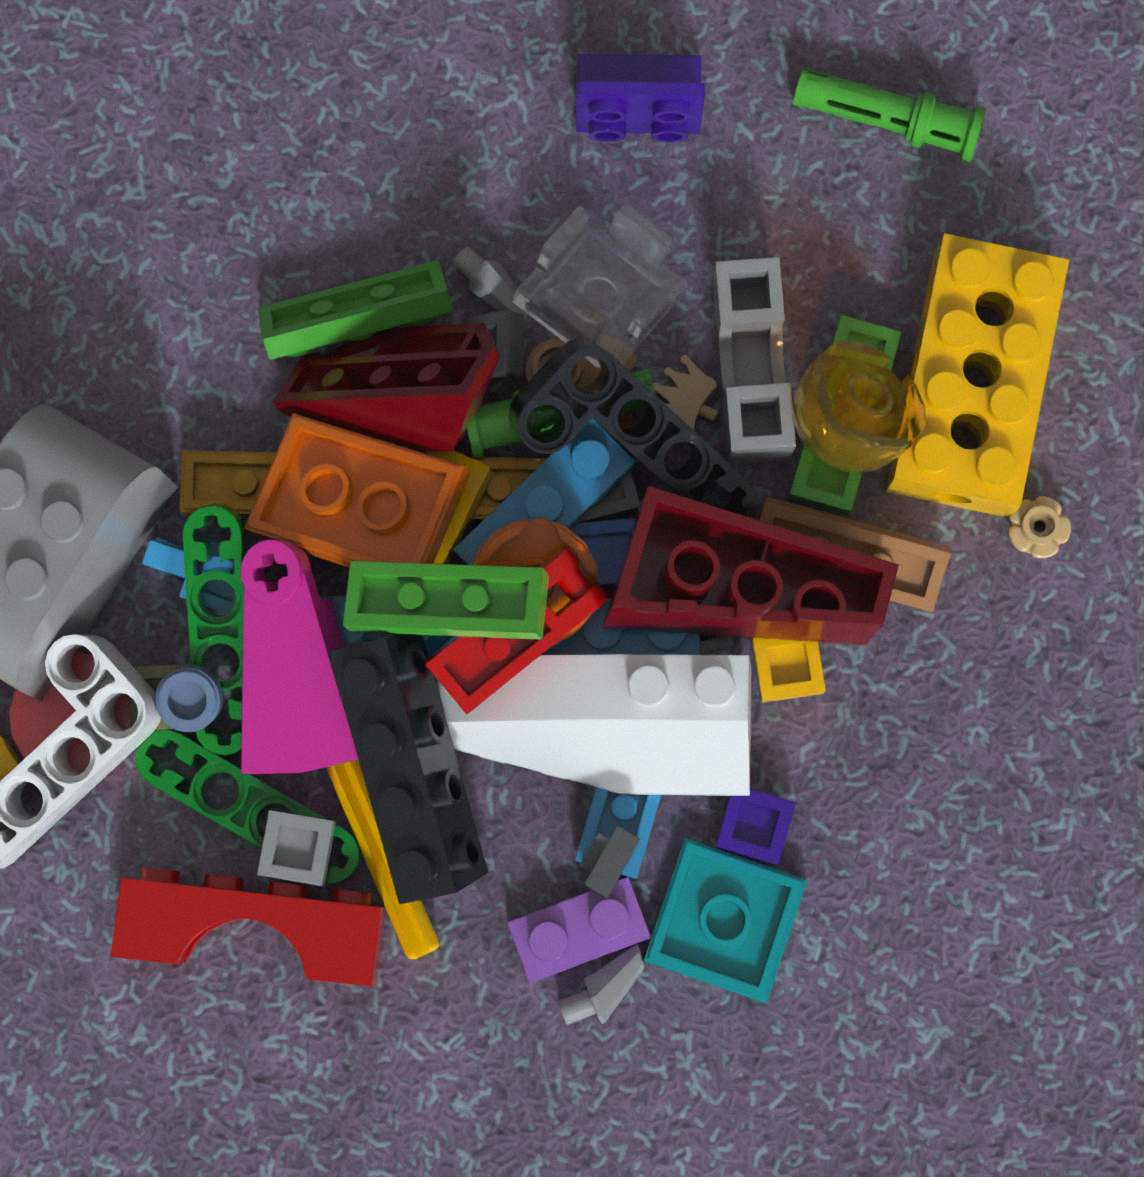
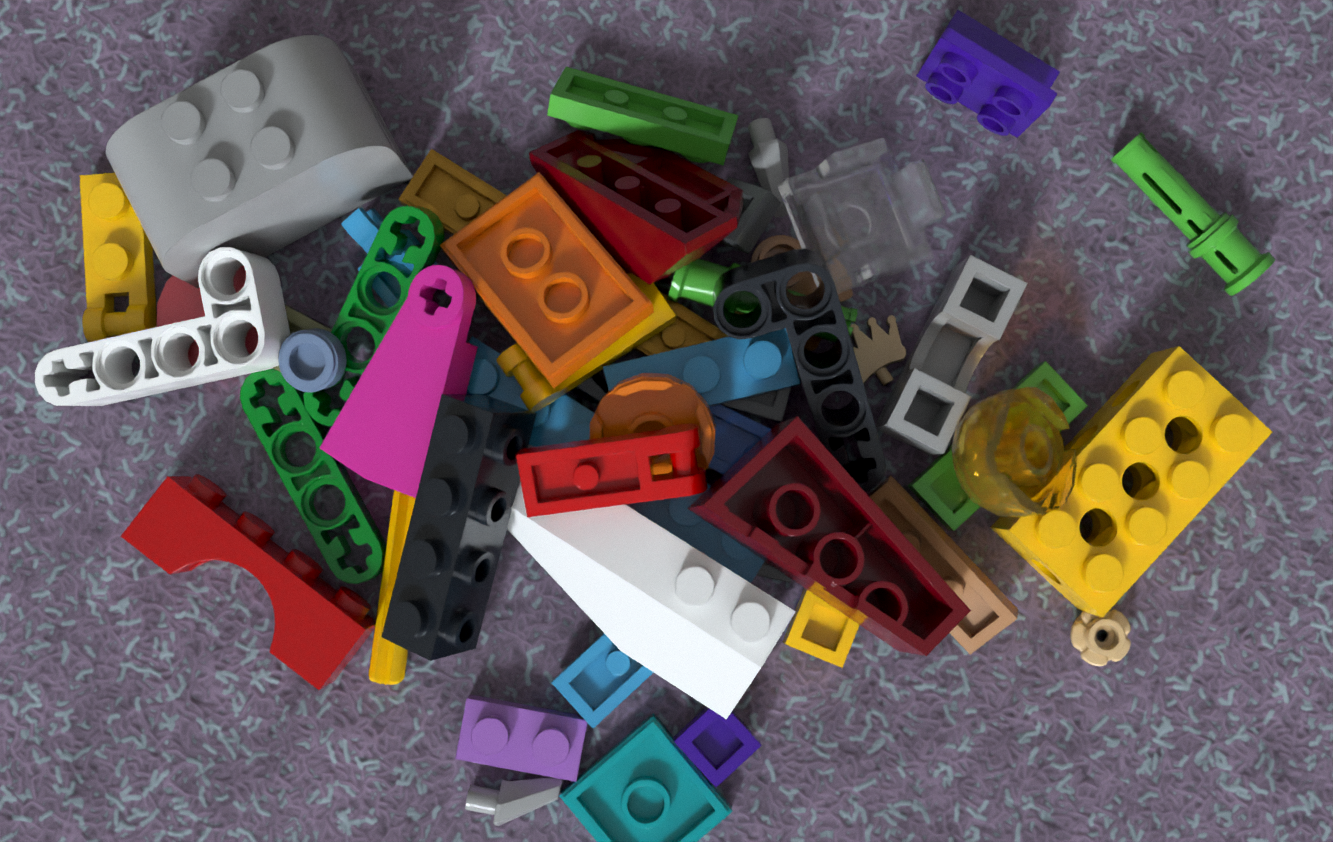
camera: 25 degrees right, 5 degrees up
(296, 848) = (326, 538): light grey plate -> none
(446, 600) = (565, 413): bright green plate -> none
(608, 859) = (575, 706): dark grey plate -> none

